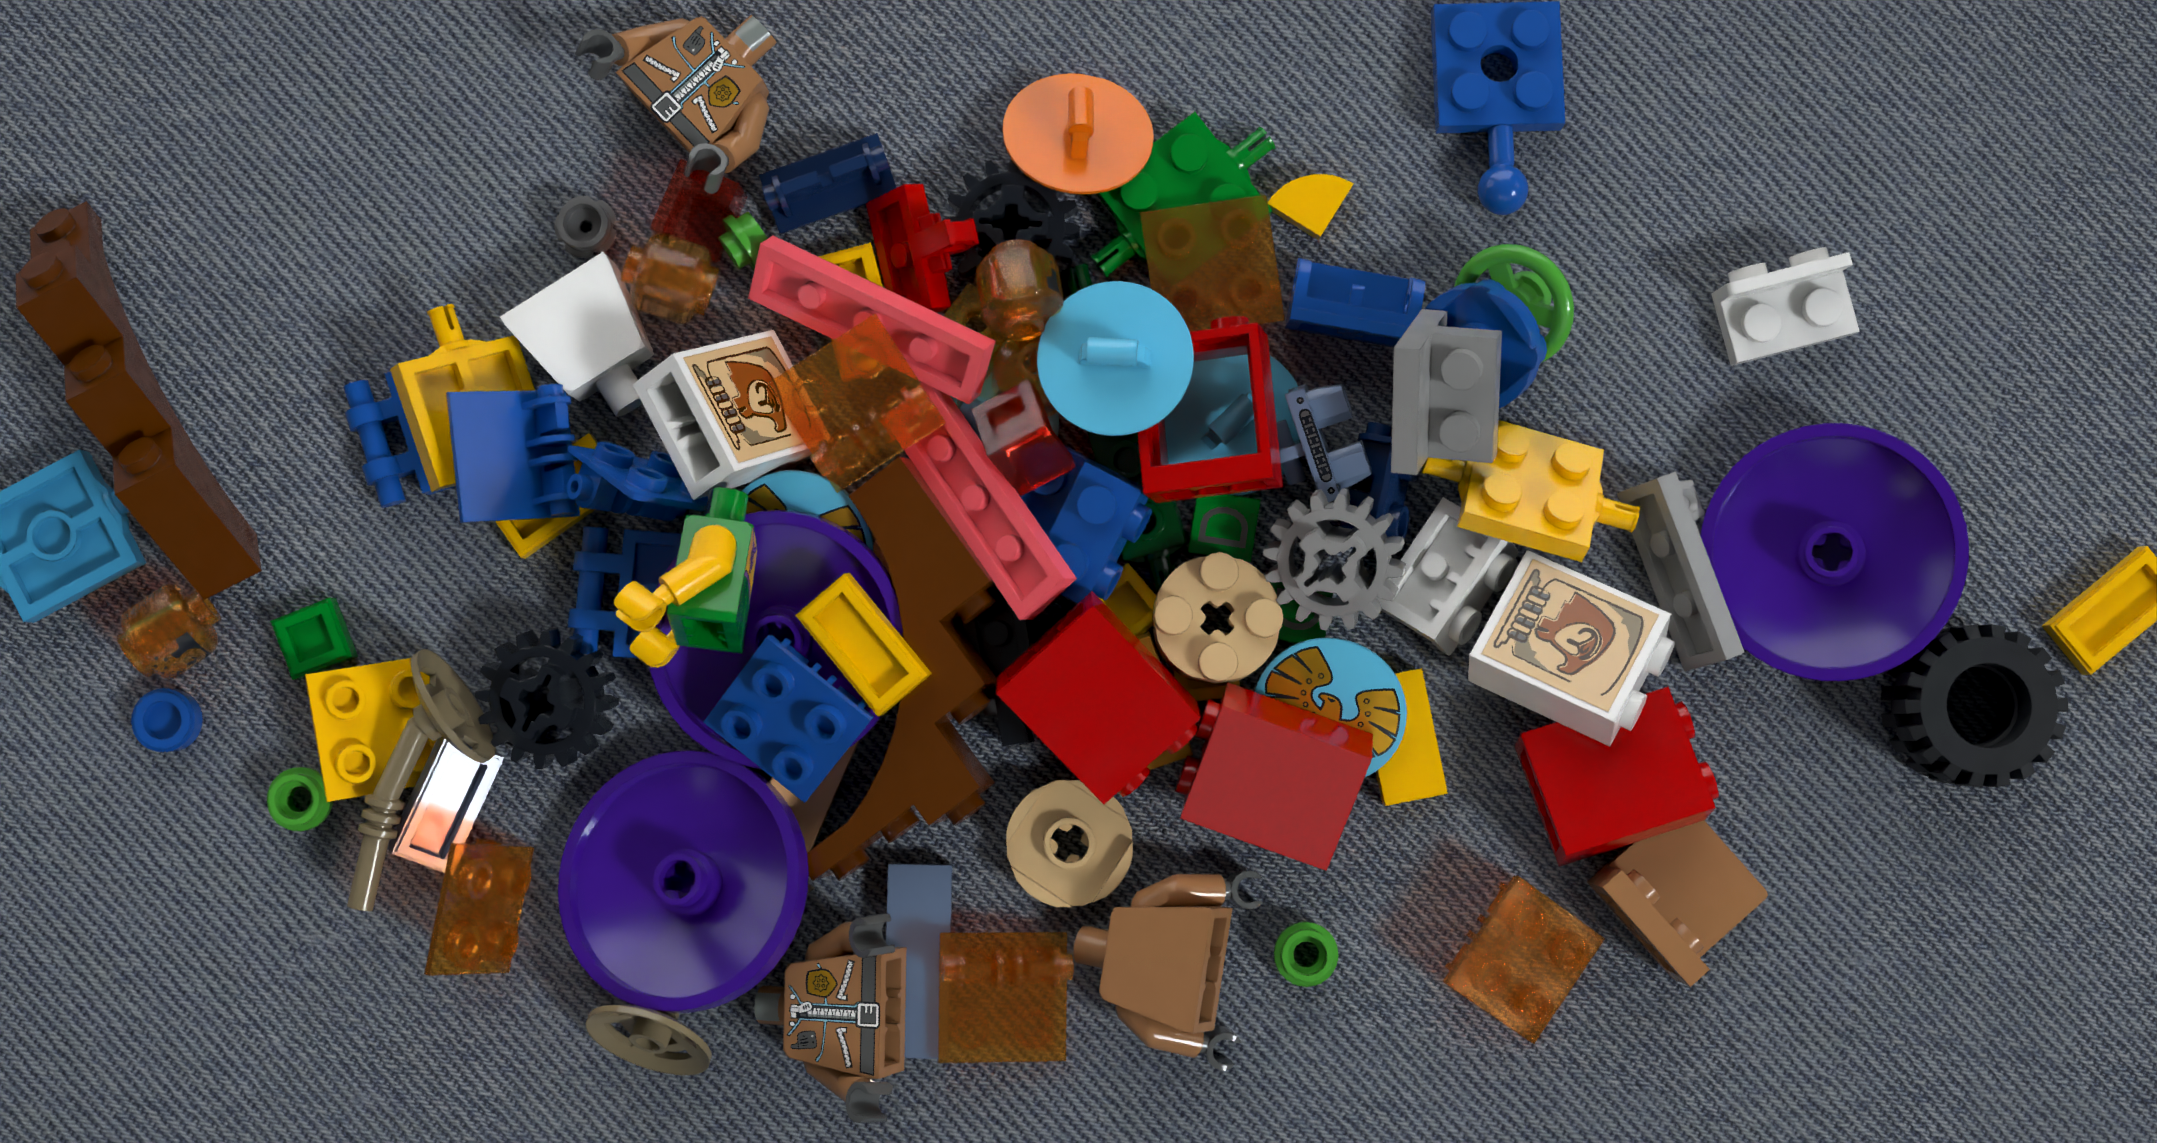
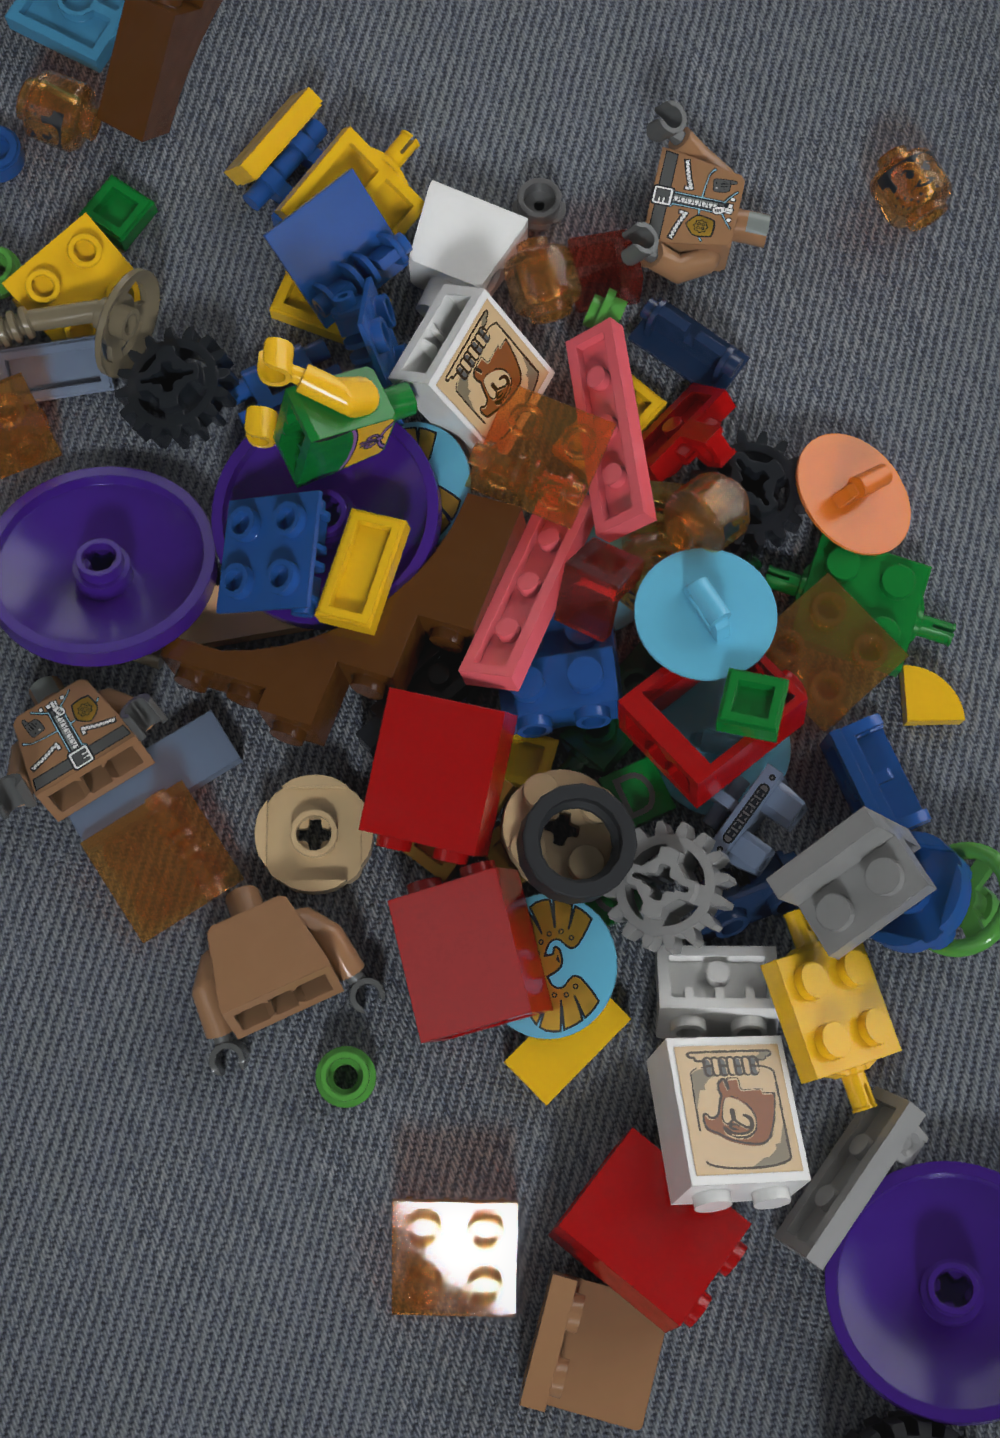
camera: 55 degrees right, 10 degrees down
(340, 437) = (274, 137): none -> yellow tile
(1233, 378) = (752, 705): none -> green tile
(1282, 583) = (603, 806): none -> black tyre

